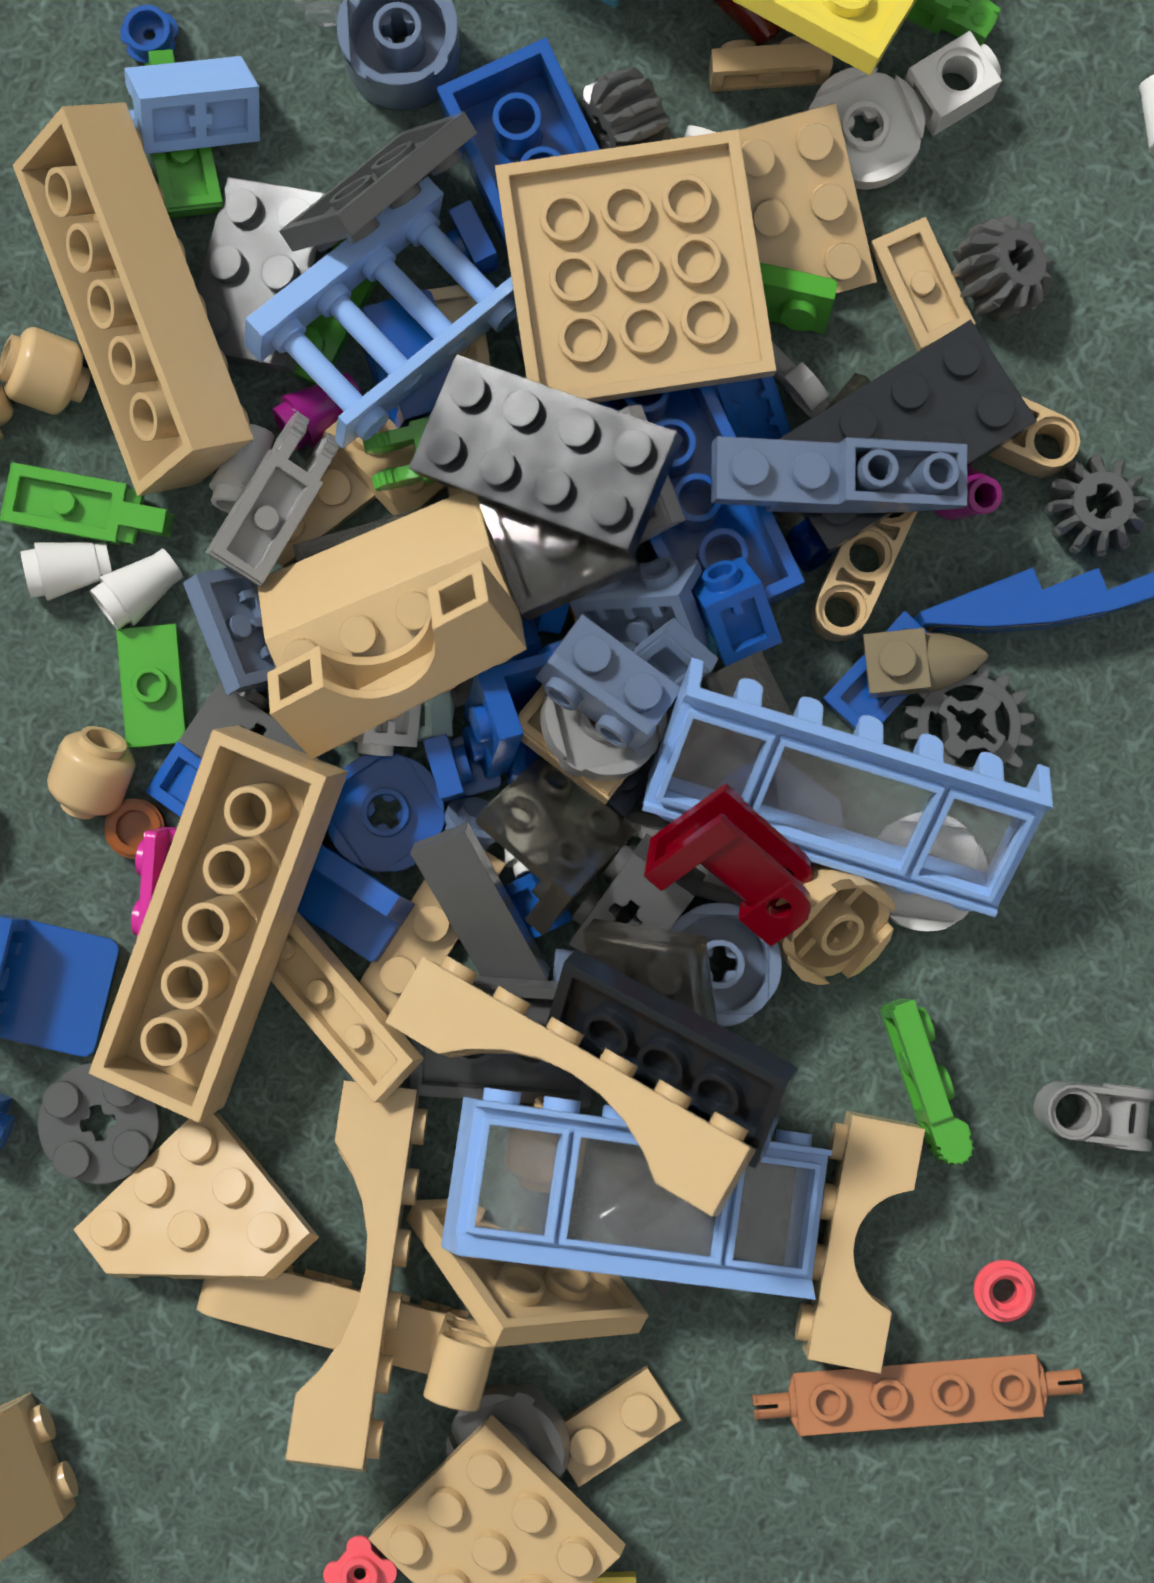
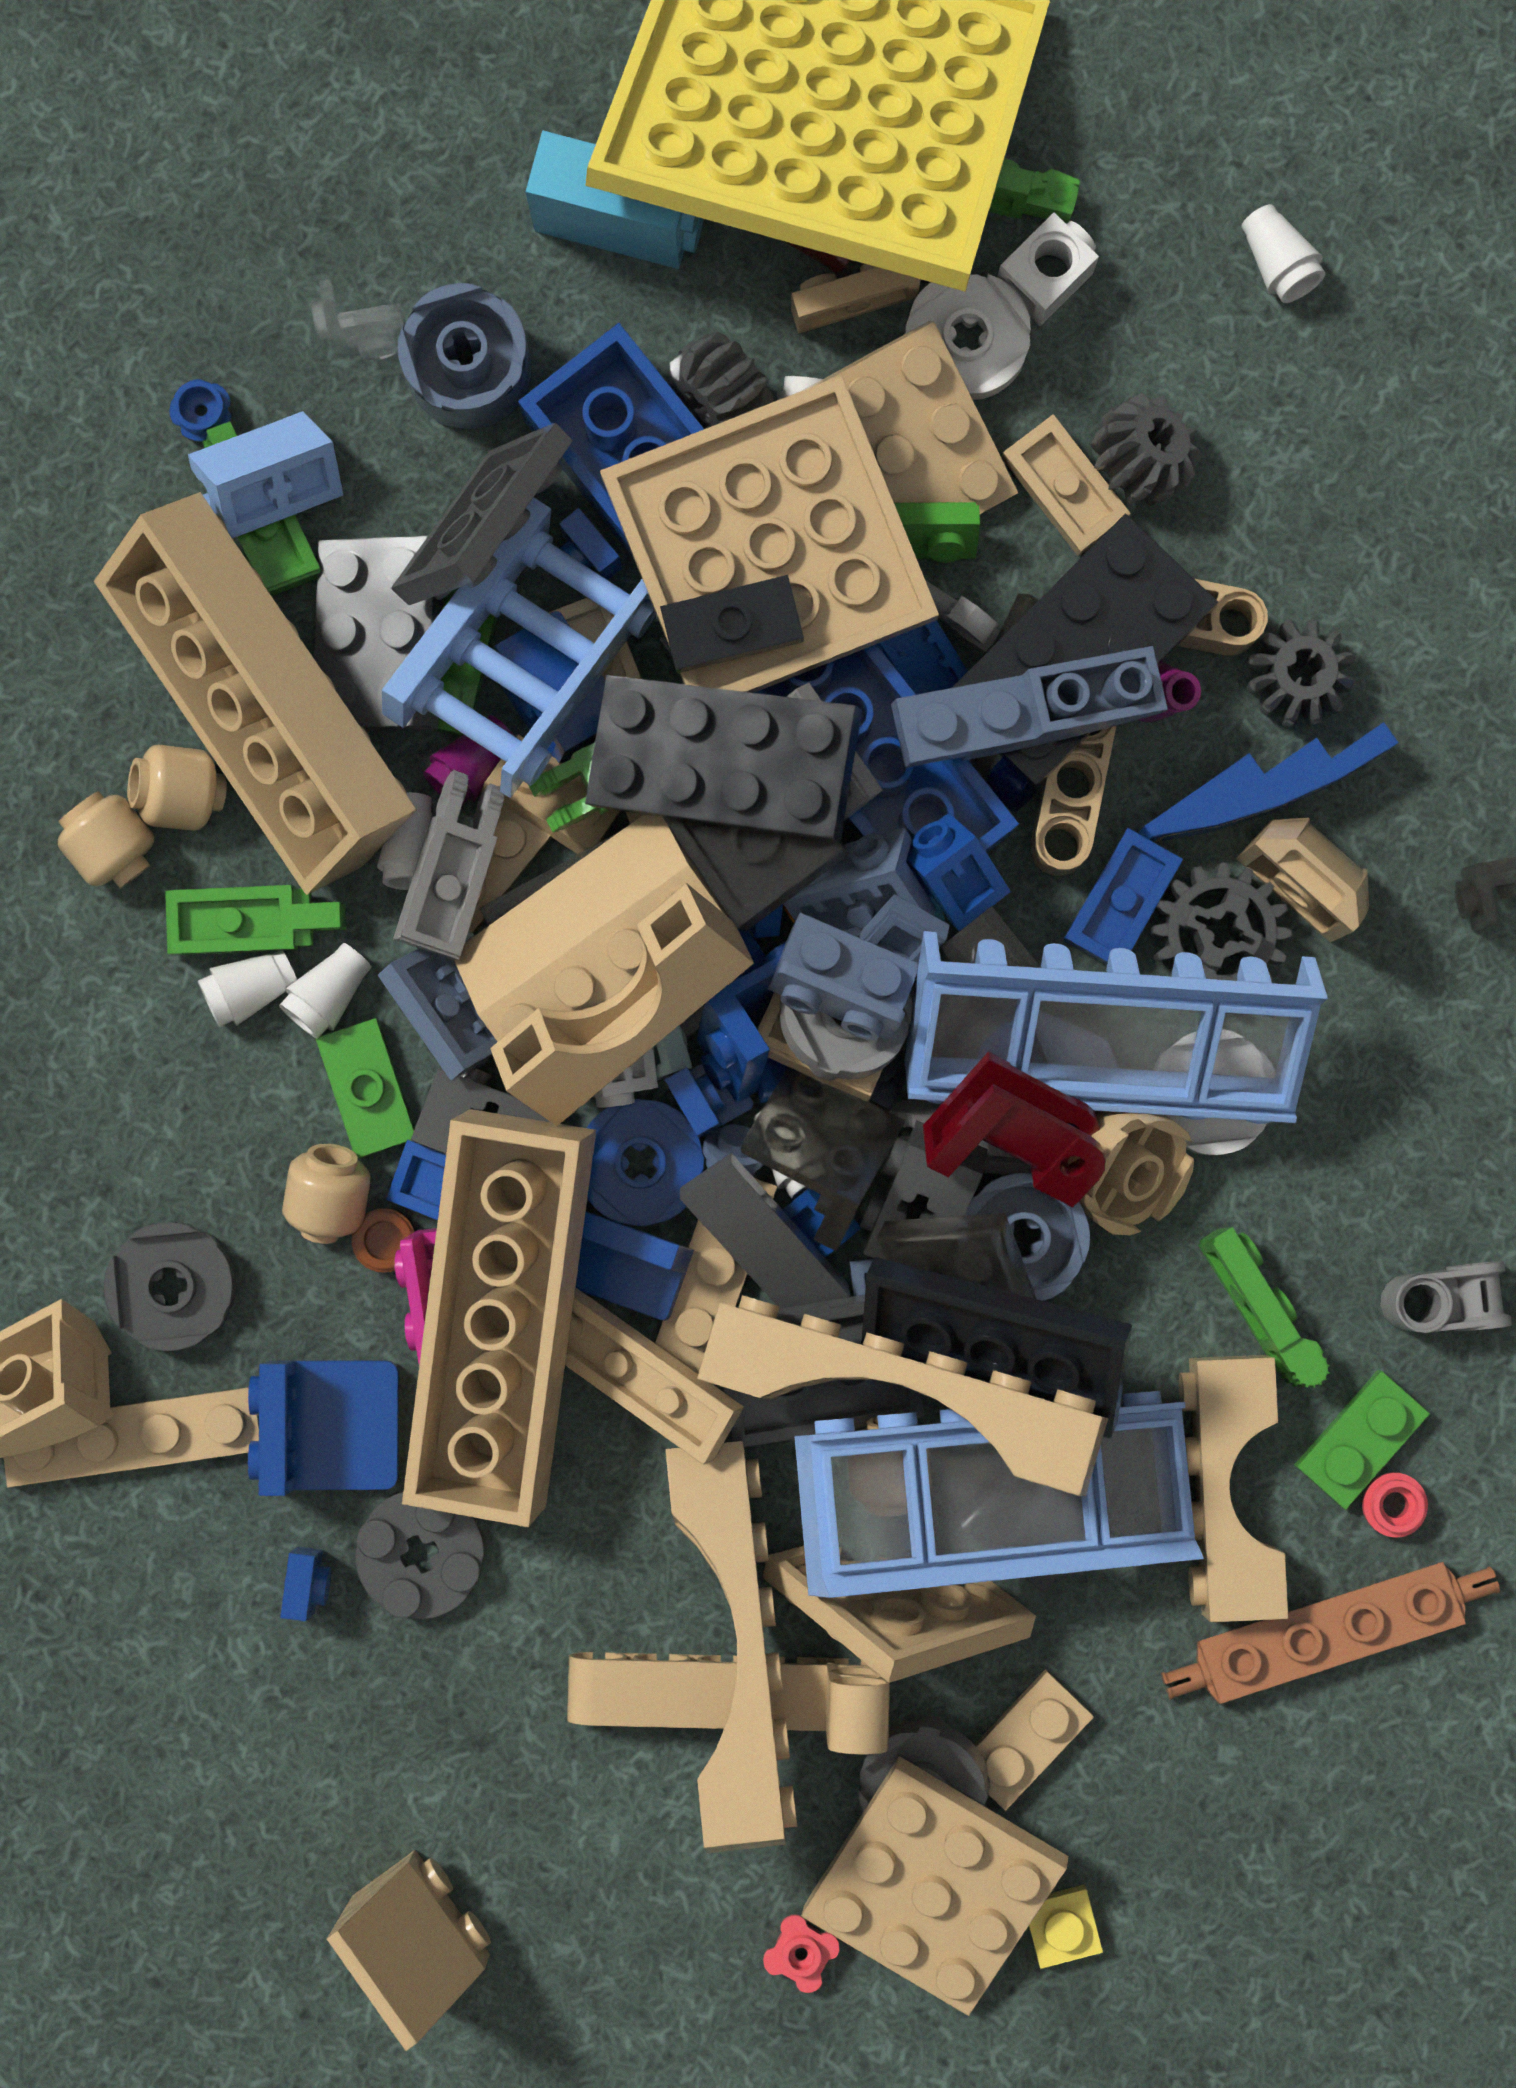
camera: 15 degrees left, 0 degrees up
(197, 1213) = (545, 1622): tan plate -> none
(582, 333) = (732, 624): none -> black plate
(917, 661) = (1153, 877): dark tan plate -> none
(987, 1223) = (1361, 1439): none -> bright green plate
(1062, 694) = (1310, 875): none -> tan slope

